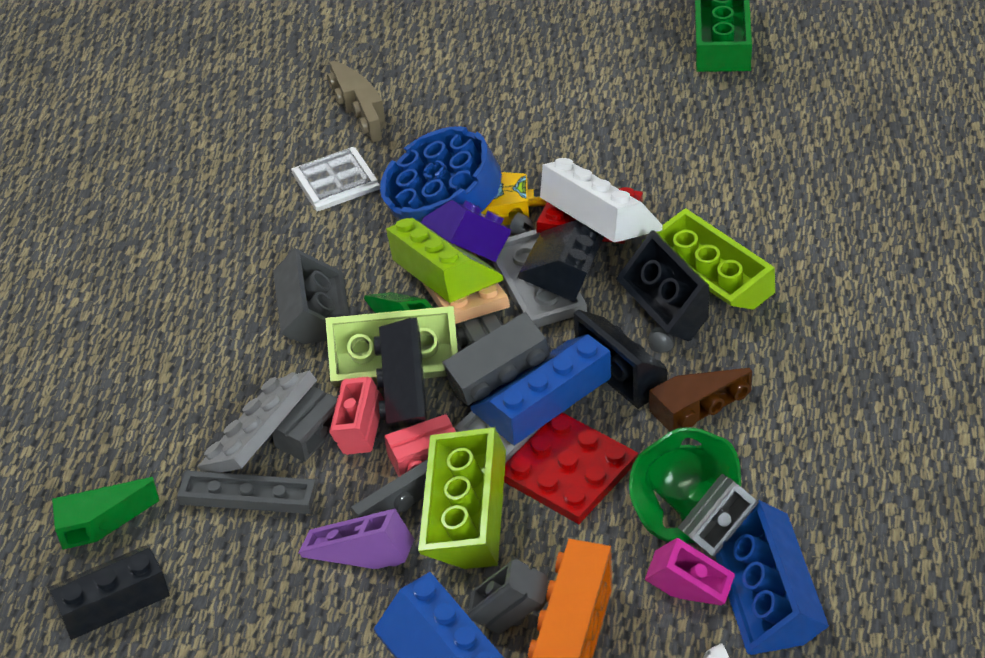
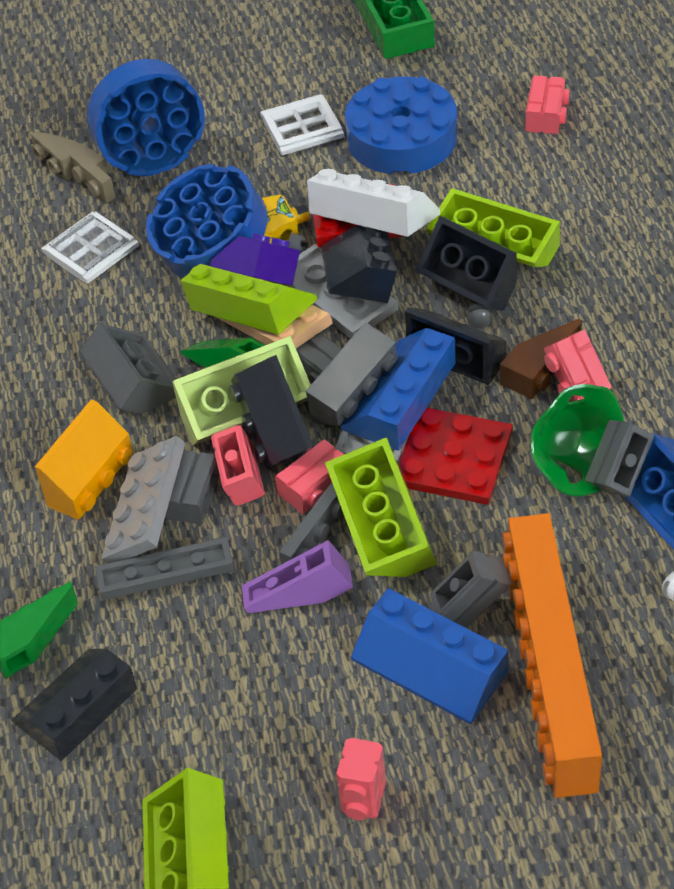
camera: 20 degrees left, 5 degrees up
(221, 370) = (83, 461): none -> light orange slope
(433, 44) = (145, 117): none -> blue brick
(585, 114) = (302, 124): none -> white piece
(676, 137) = (401, 124): none -> blue brick
(689, 574) = (615, 518): dark pink slope -> none
(723, 410) = (575, 363): none -> coral brick
(829, 152) = (546, 104): none -> coral brick

